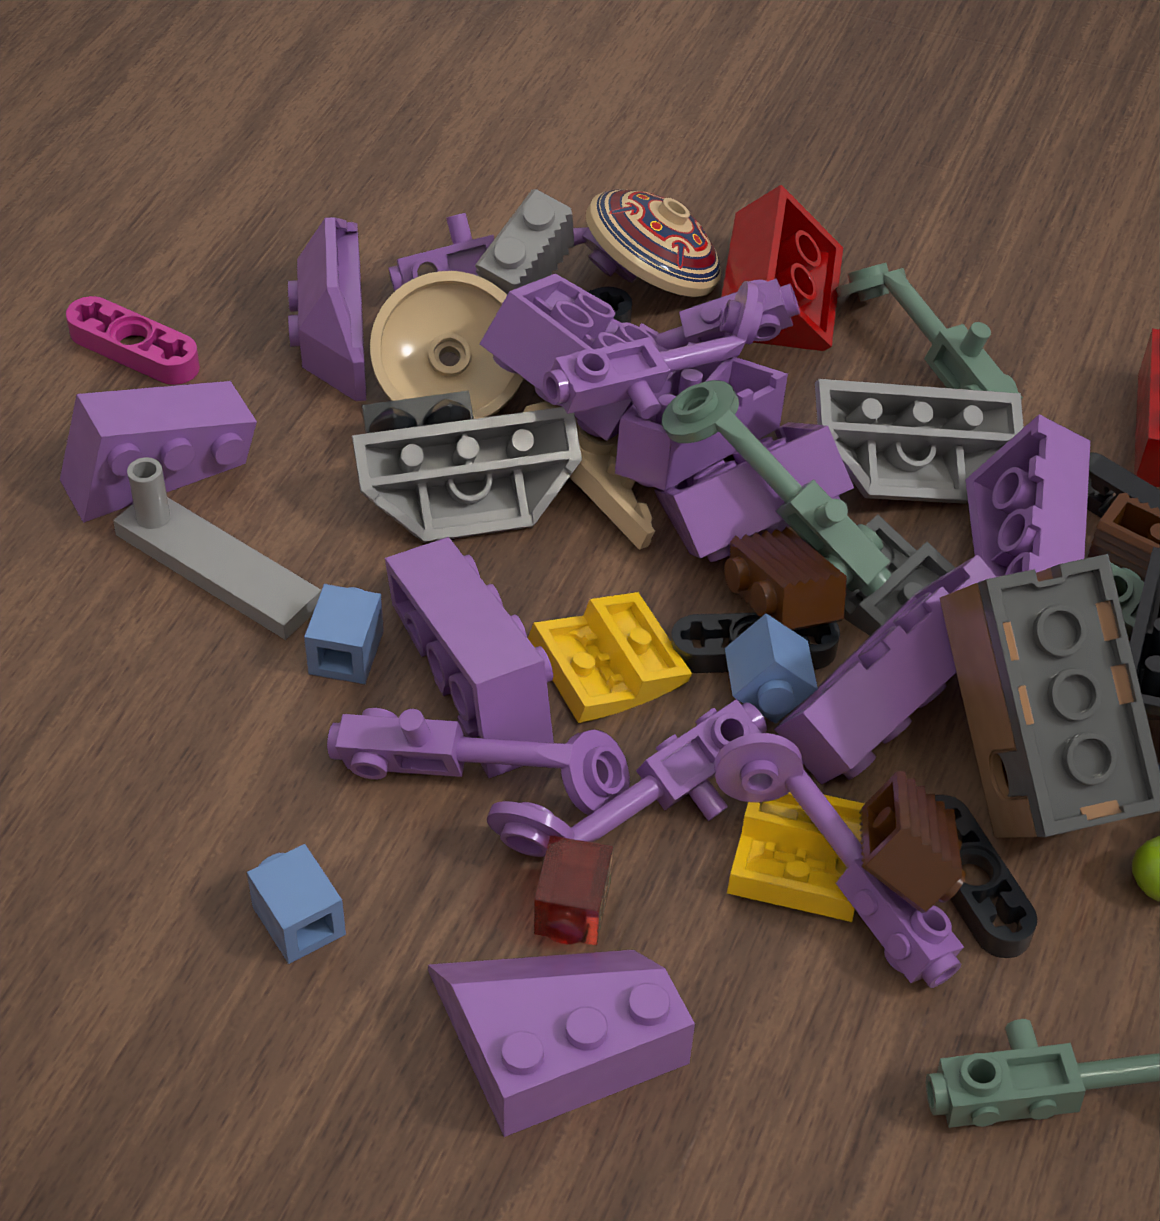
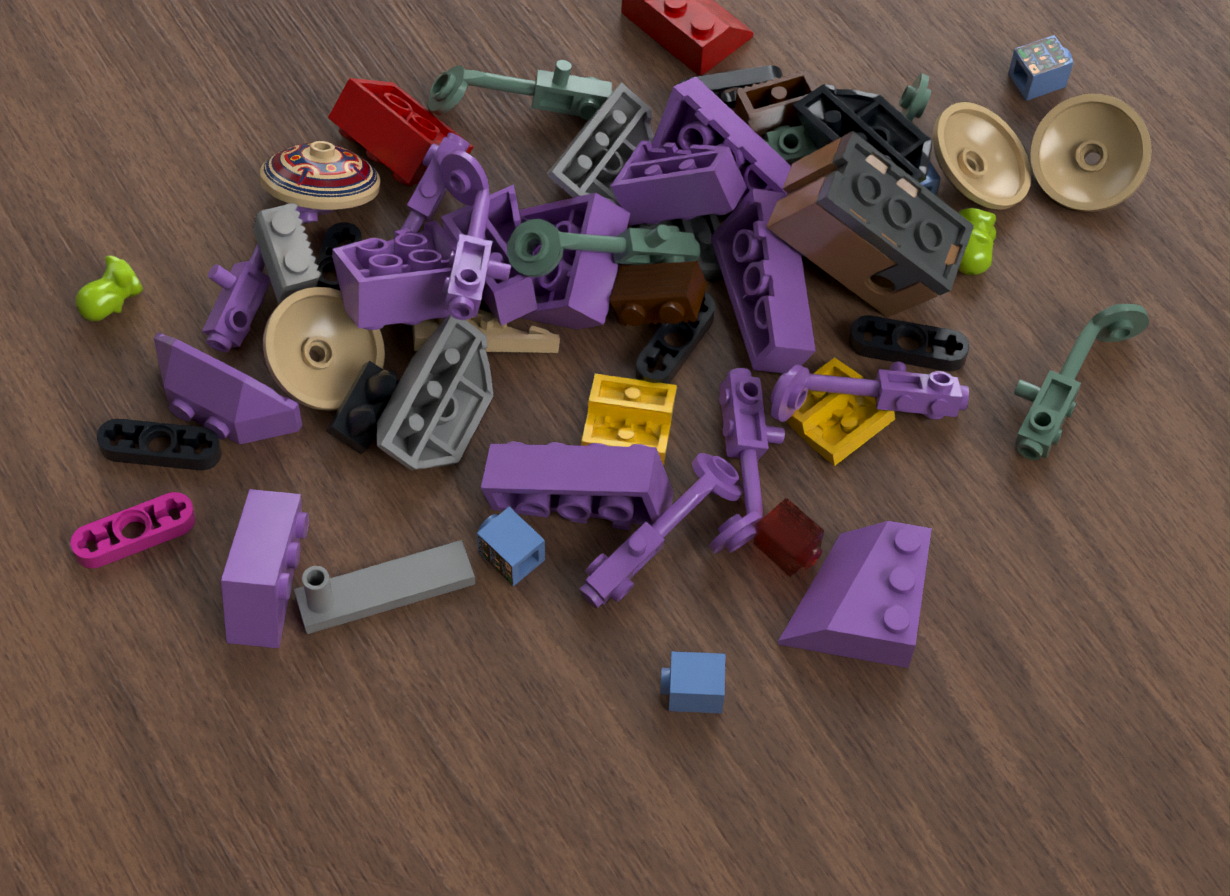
camera: 55 degrees left, 10 degrees up
(246, 323) = (147, 431): none -> black beam
(380, 180) = (107, 294): none -> lime animal
(770, 668) = (716, 343): medium blue brick -> none
(911, 843) = (895, 353): reddish brown brick -> none
(931, 505) = (678, 183): none -> medium lavender wedge

